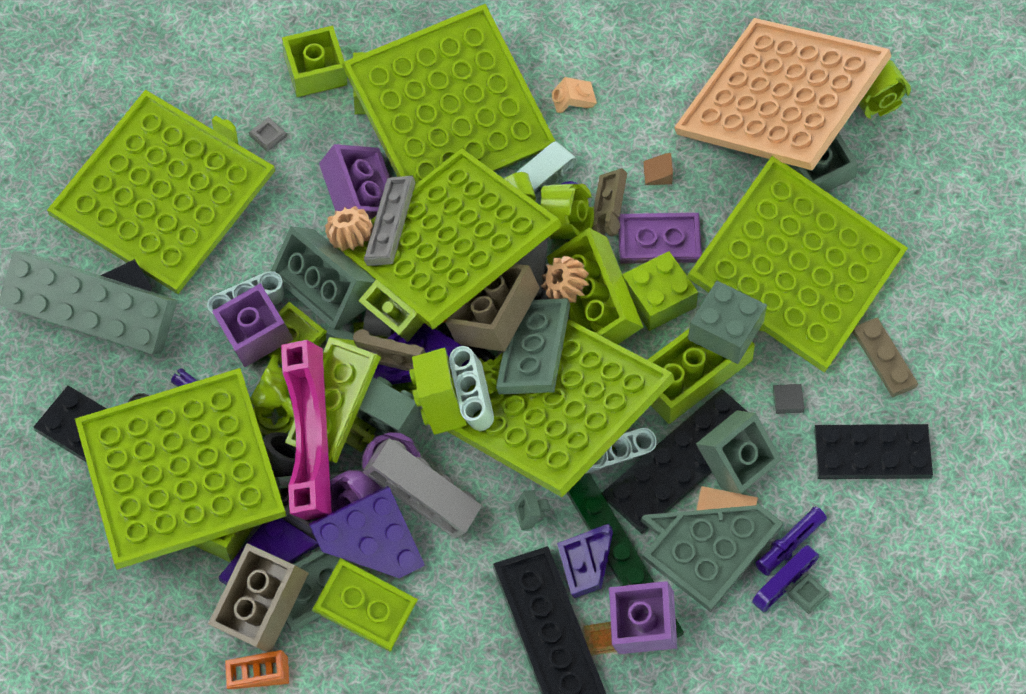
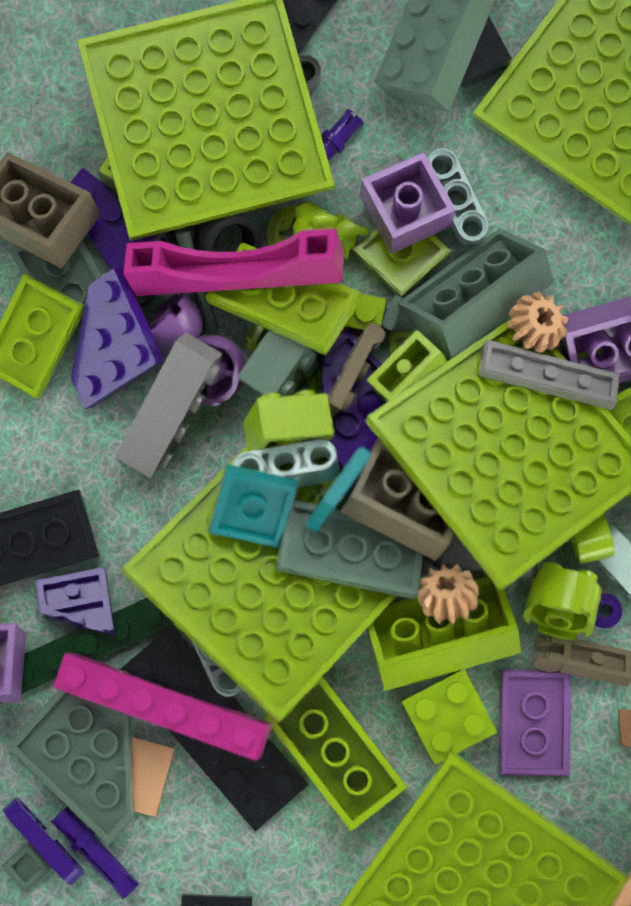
camera: 90 degrees right, 25 degrees up
(489, 343) = (338, 489): none -> teal tile
(504, 404) = (253, 506): none -> teal tile
(530, 509) = (143, 533): sand green tile -> none
(666, 477) = (163, 706): none -> dark pink arch
(727, 322) = (373, 798): sand green brick -> none
(738, 451) = (204, 798): sand green brick -> none
(788, 398) = (293, 868): dark grey tile -> none

